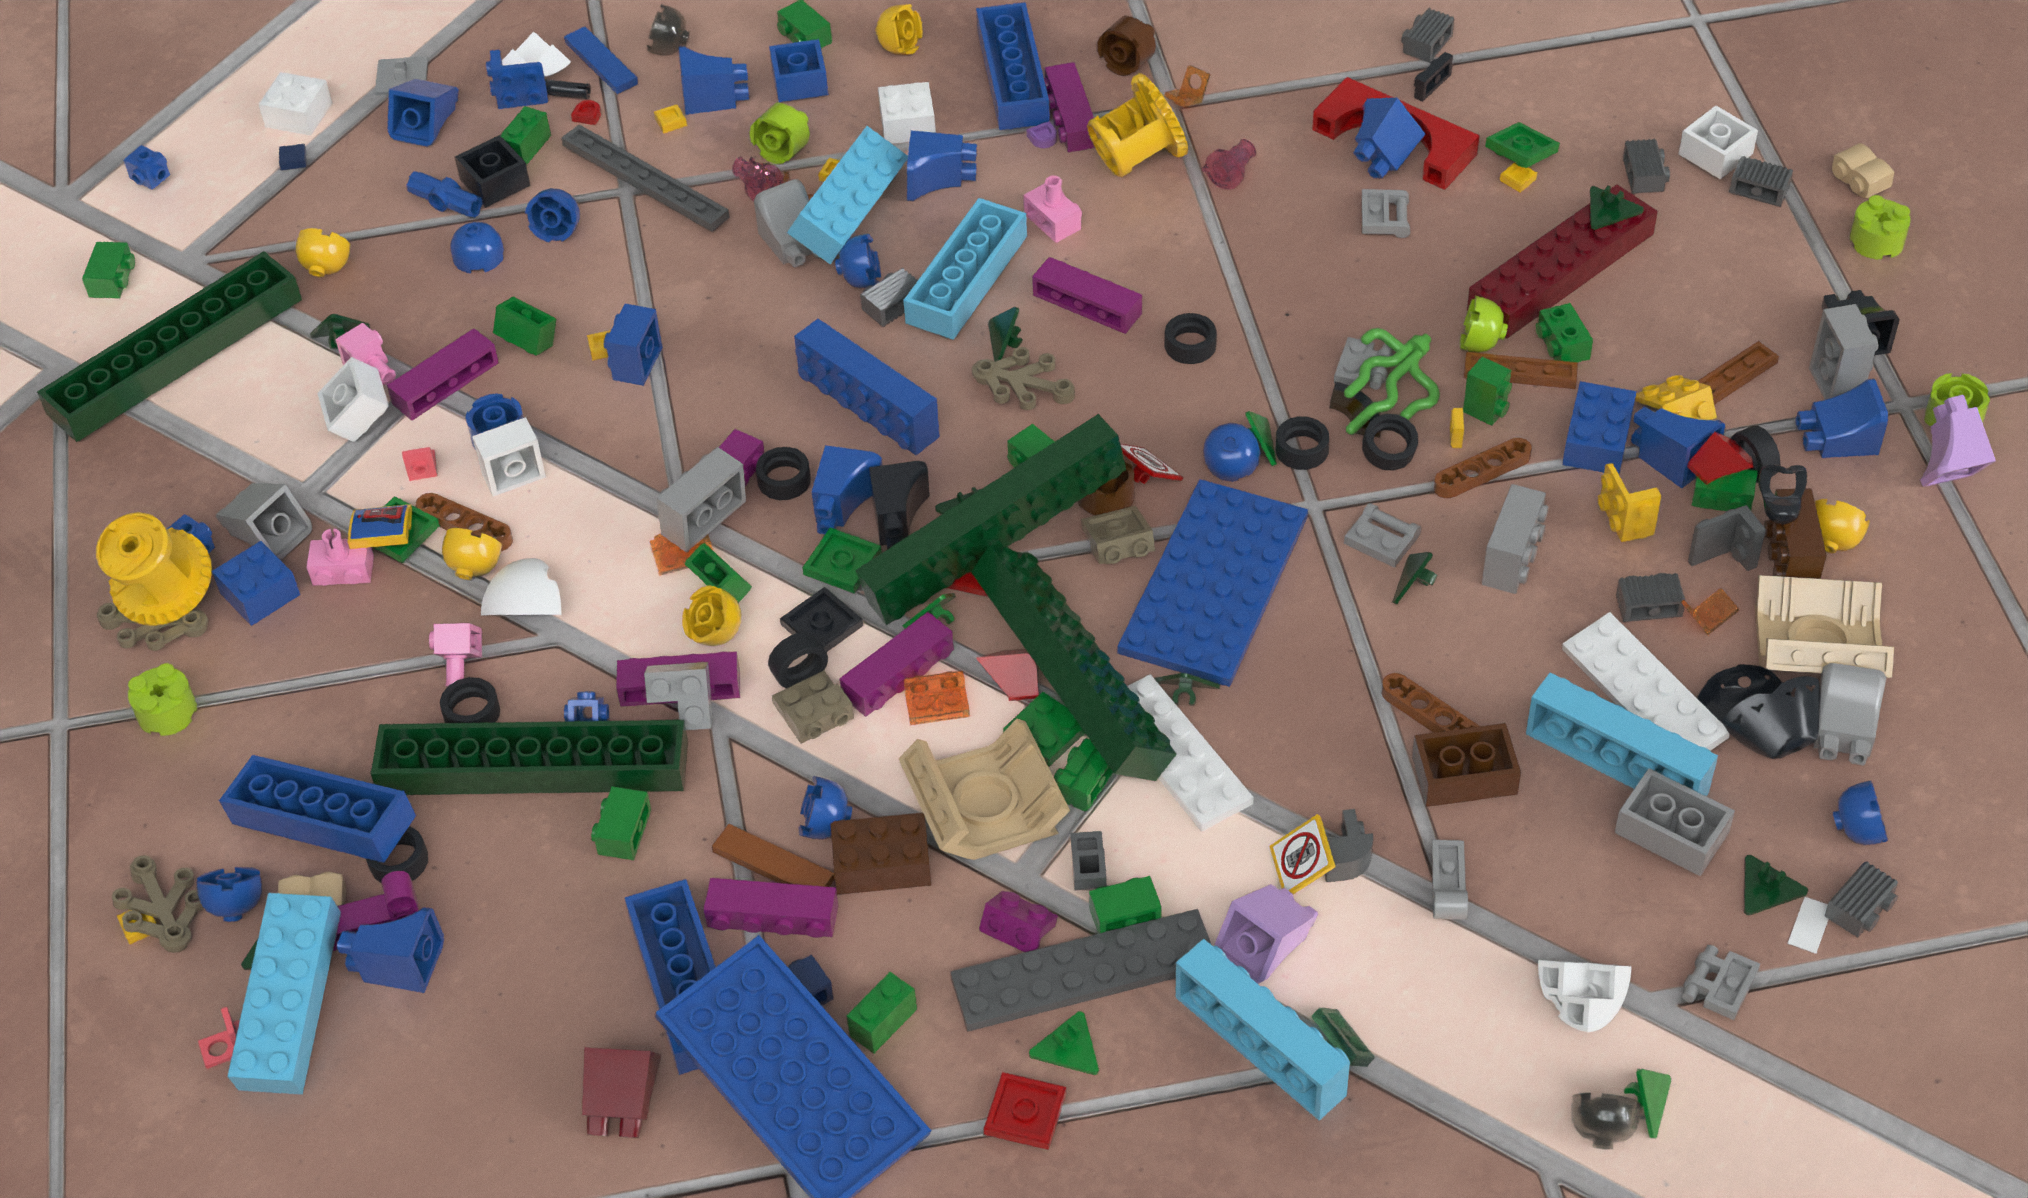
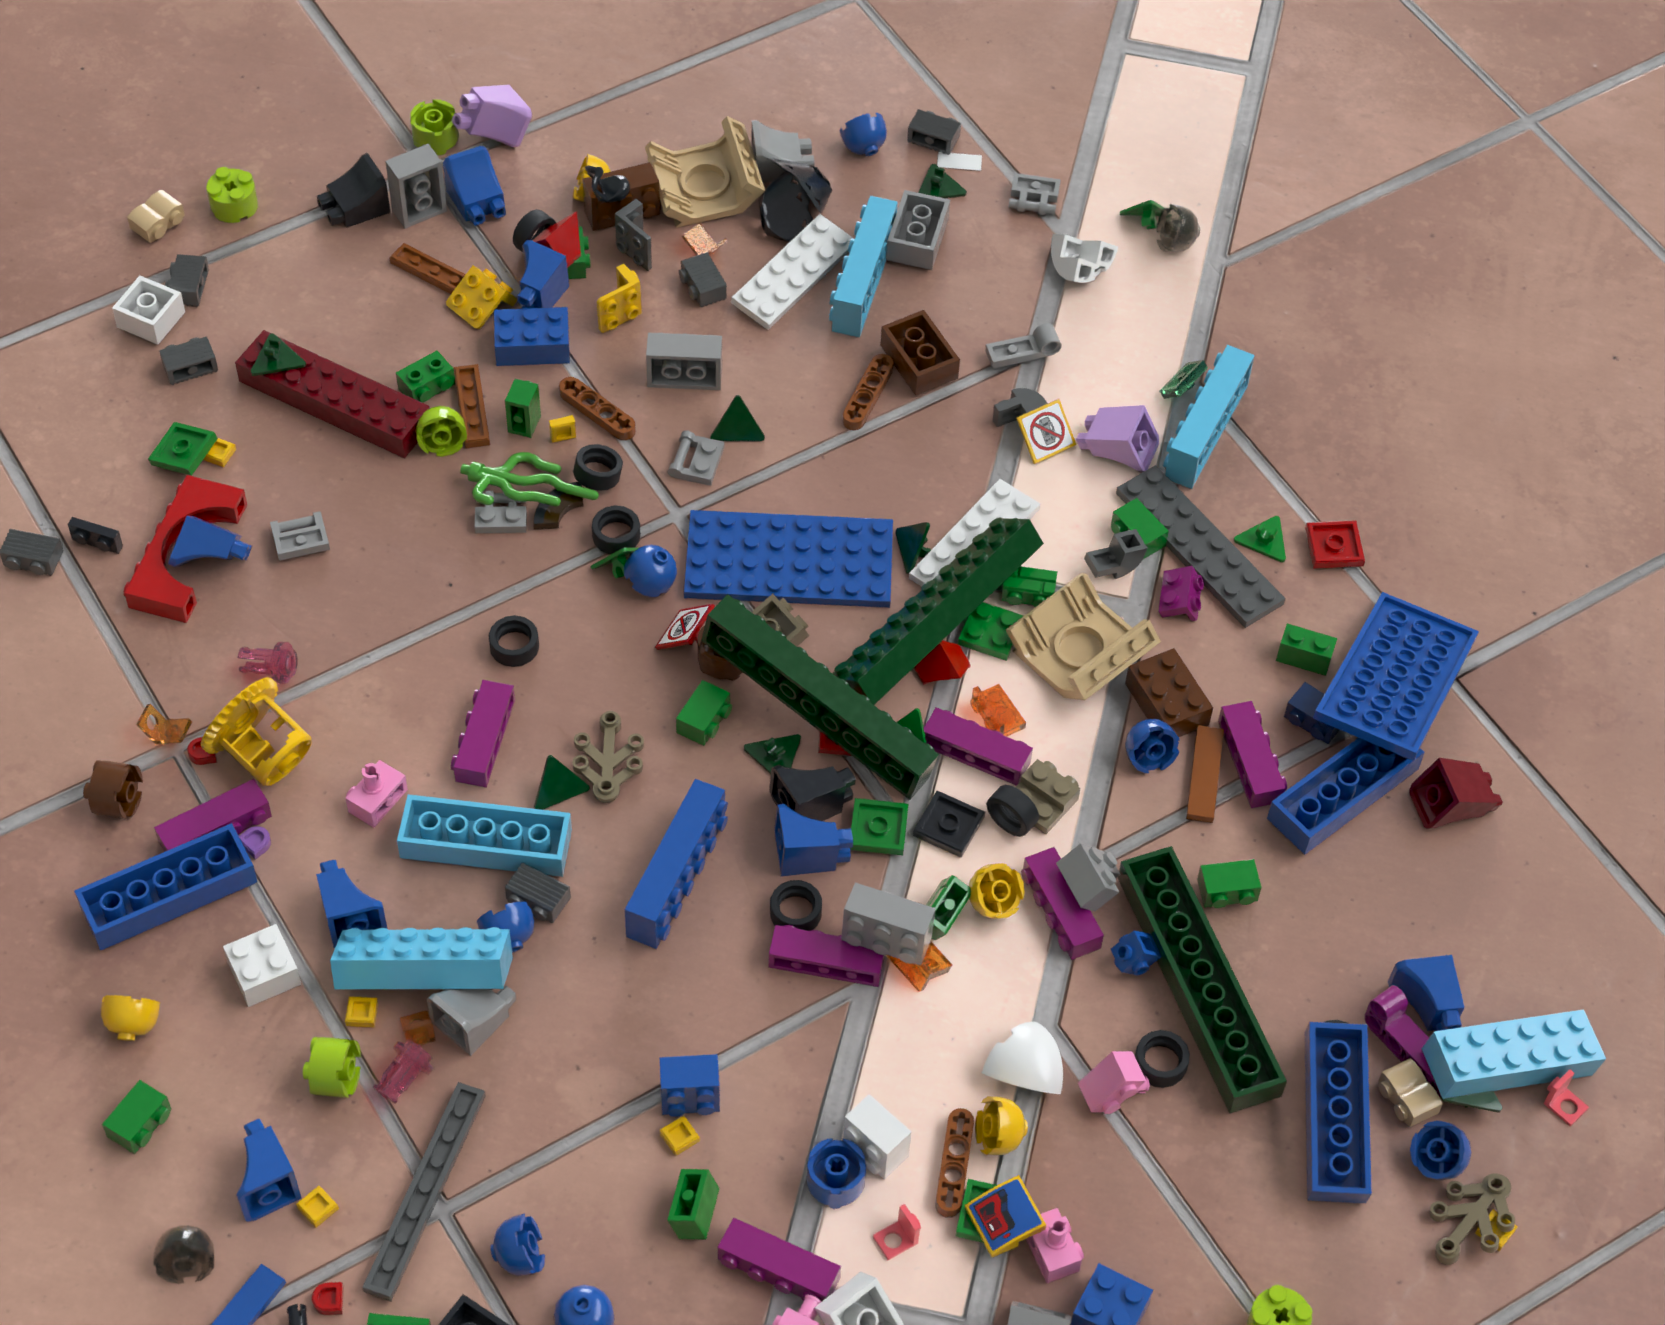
camera: 115 degrees left, 5 degrees up
(798, 70) = (222, 1088): blue brick -> none

